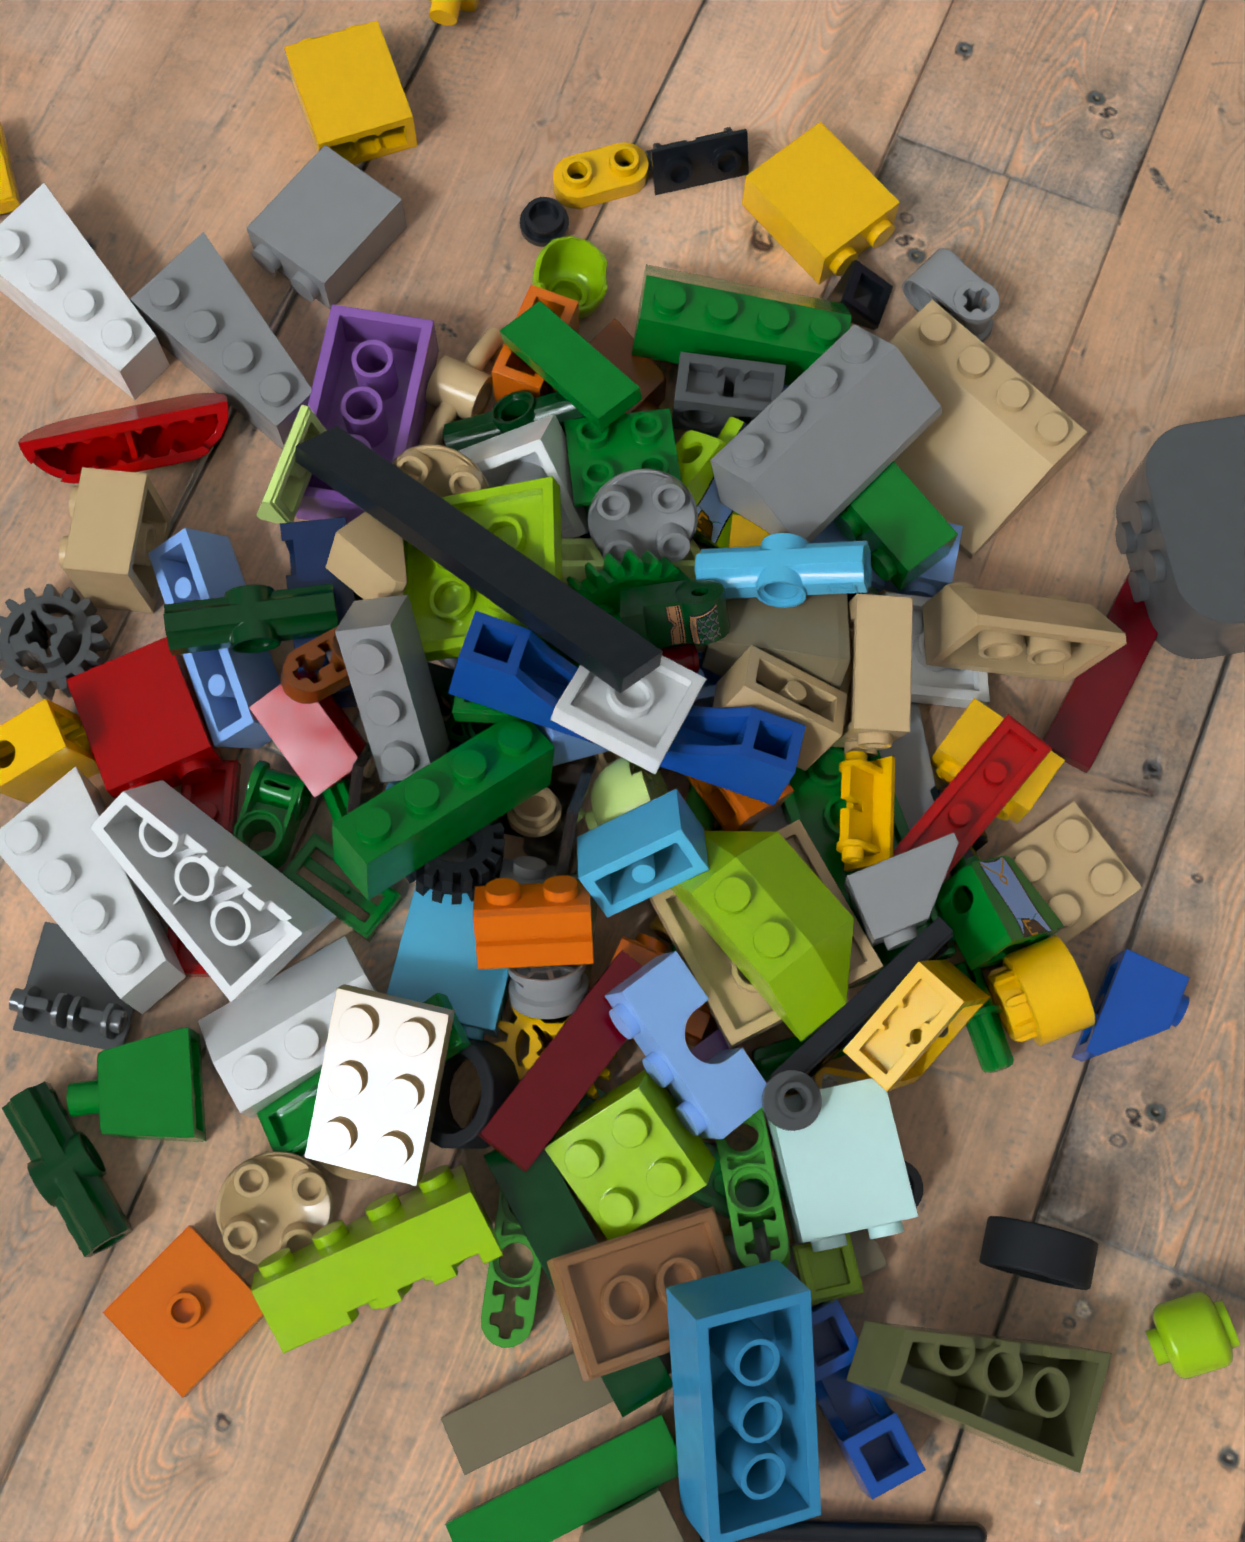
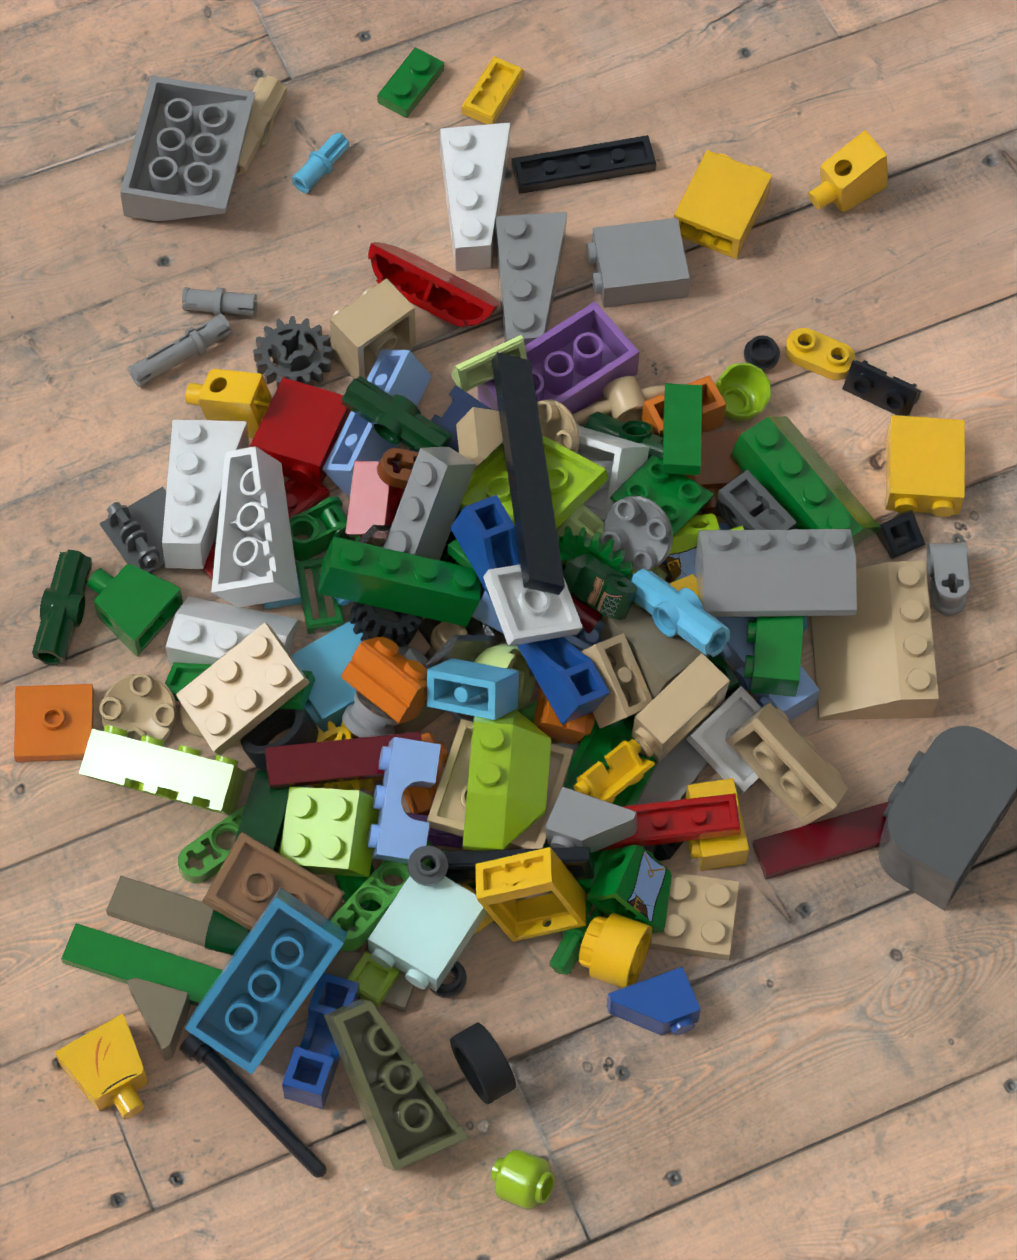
camera: 45 degrees right, 10 degrees down
(160, 172) = (583, 164): none -> black tile

